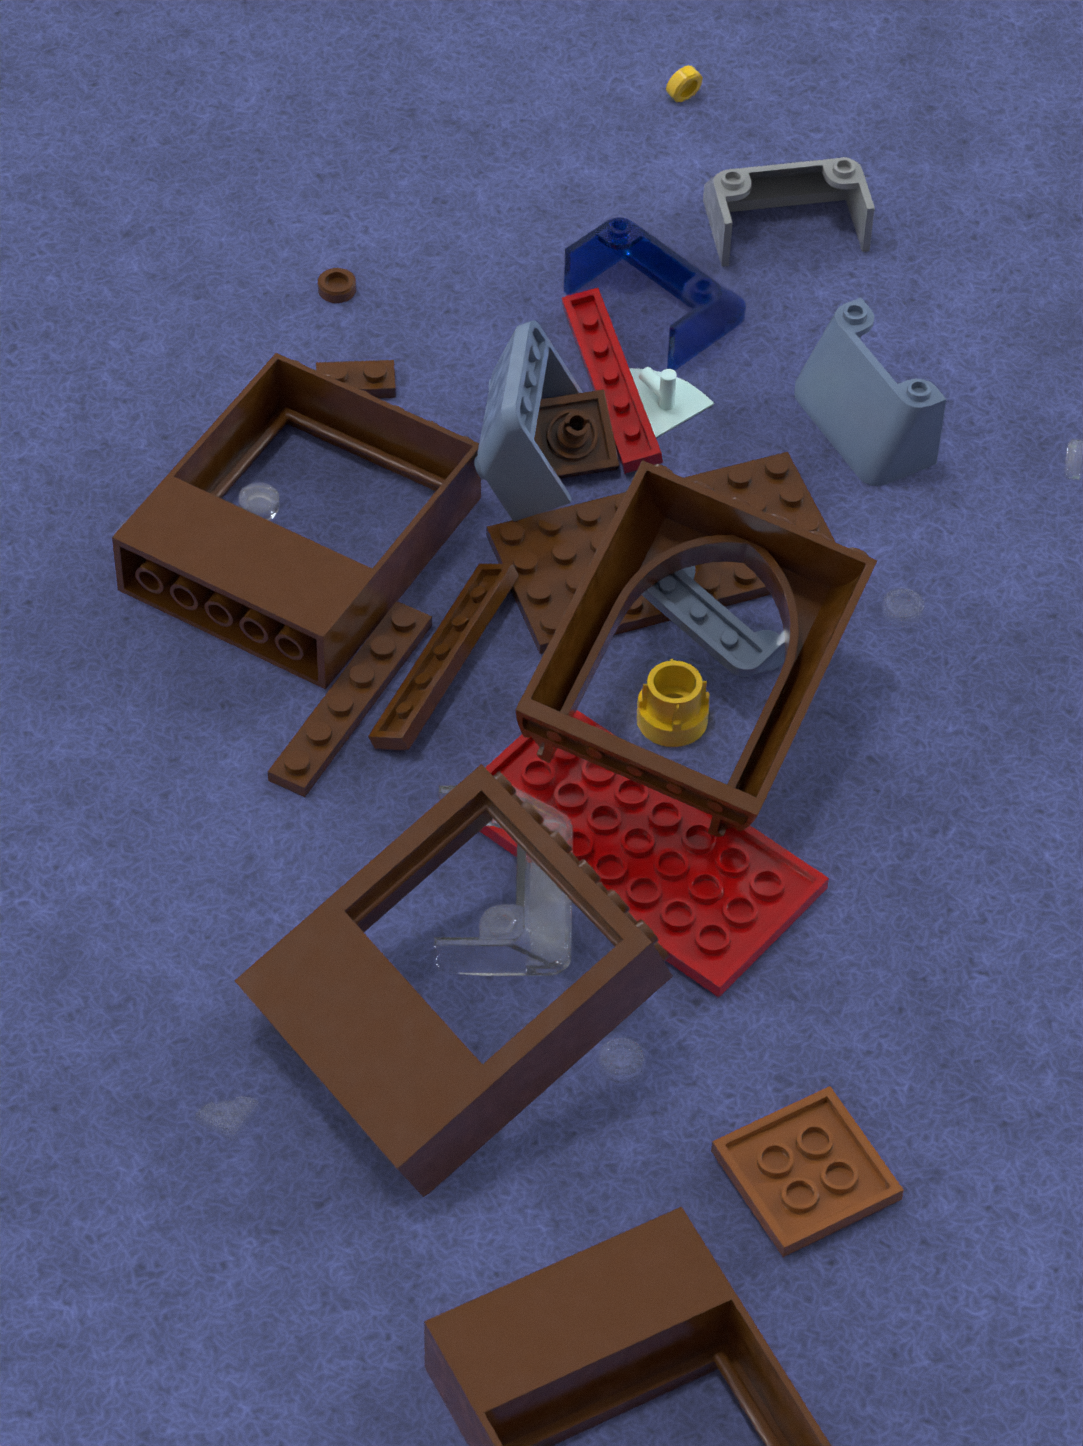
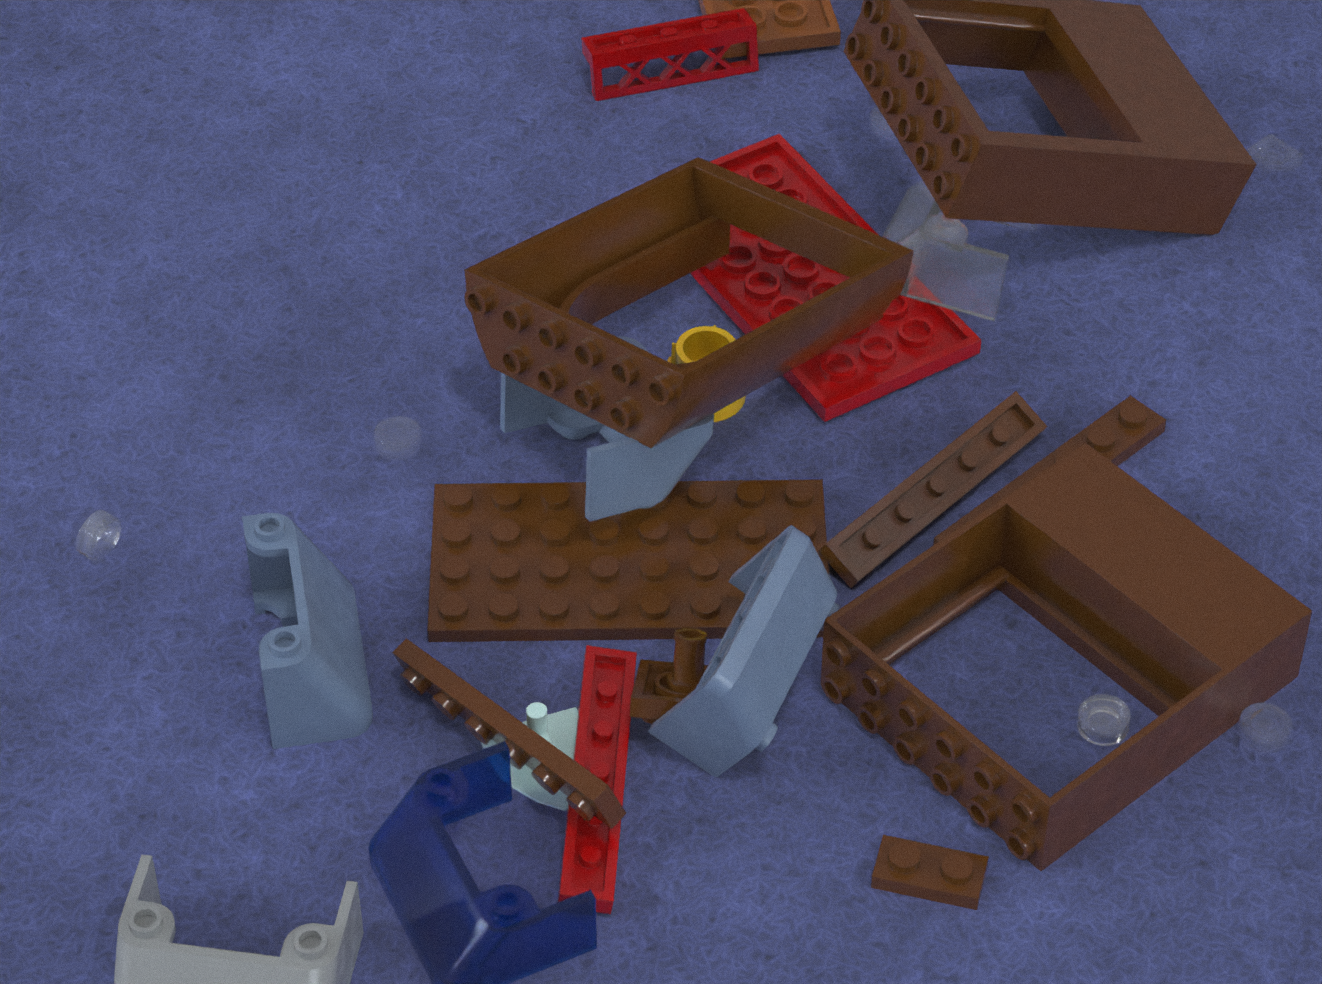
camera: 160 degrees left, 5 degrees down
(694, 369) = (490, 722): none -> reddish brown plate
(874, 1061) = (670, 39): none -> red fence

